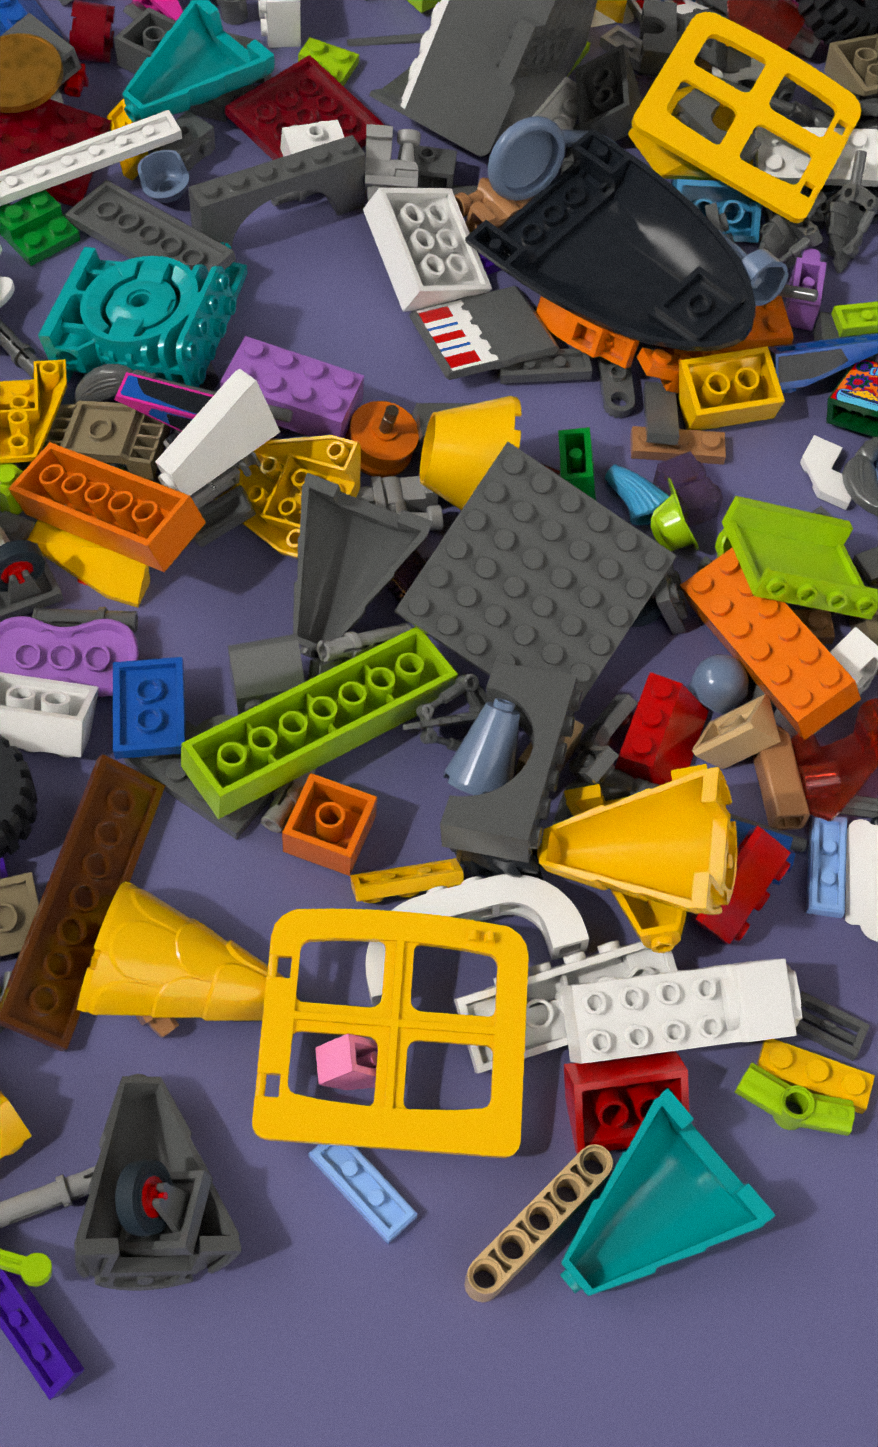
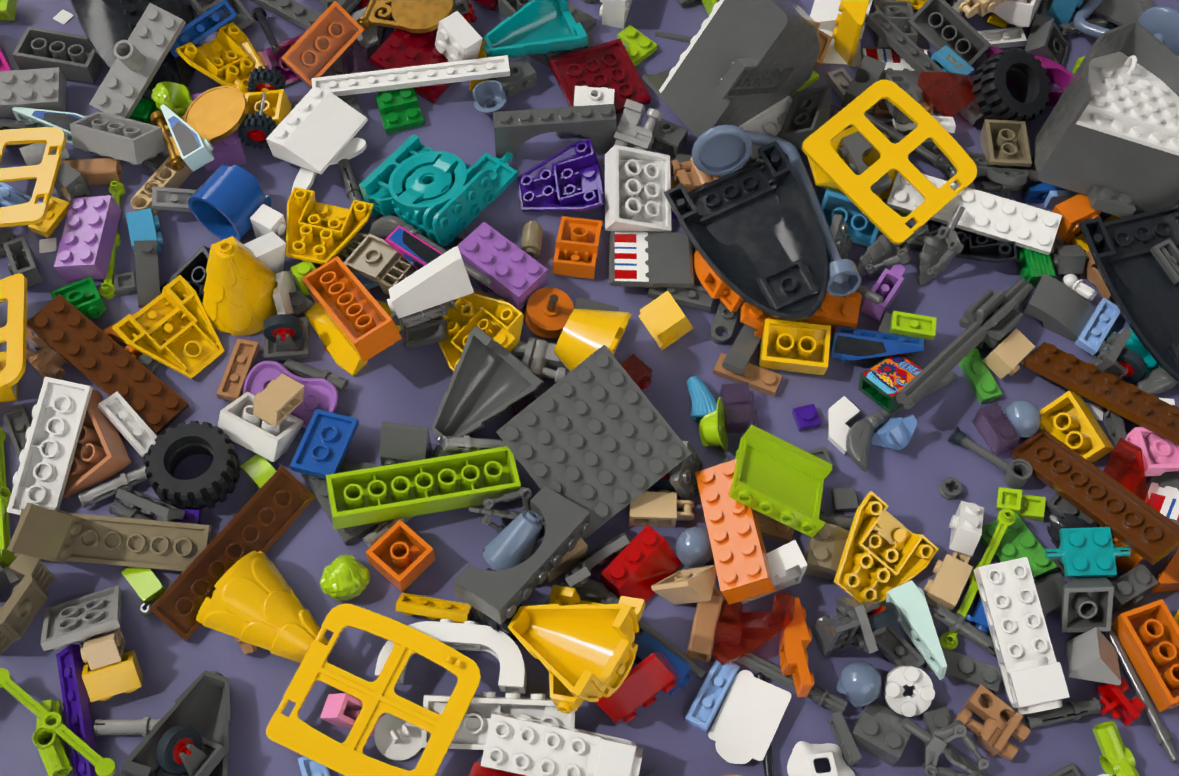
camera: 25 degrees right, 0 degrees up
(54, 665) = (278, 399): none -> tan brick
(62, 776) = (258, 470): none -> lime slope
(86, 104) = (457, 39): none -> white brick
(144, 230) = (463, 133): dark grey plate -> none
(261, 882) = (344, 578): none -> lime hair
(307, 342) = (532, 239): none -> dark tan head
(317, 262) = (564, 181): none -> dark purple wedge
(377, 343) = (577, 247): none -> orange slope
(438, 1072) = (397, 738): none -> white piece
(545, 403) = (665, 320): none -> yellow plate
(577, 459) = (668, 369): green brick -> none
(650, 649) = (659, 509): none -> tan brick
(778, 477) = (806, 417): none -> dark purple plate

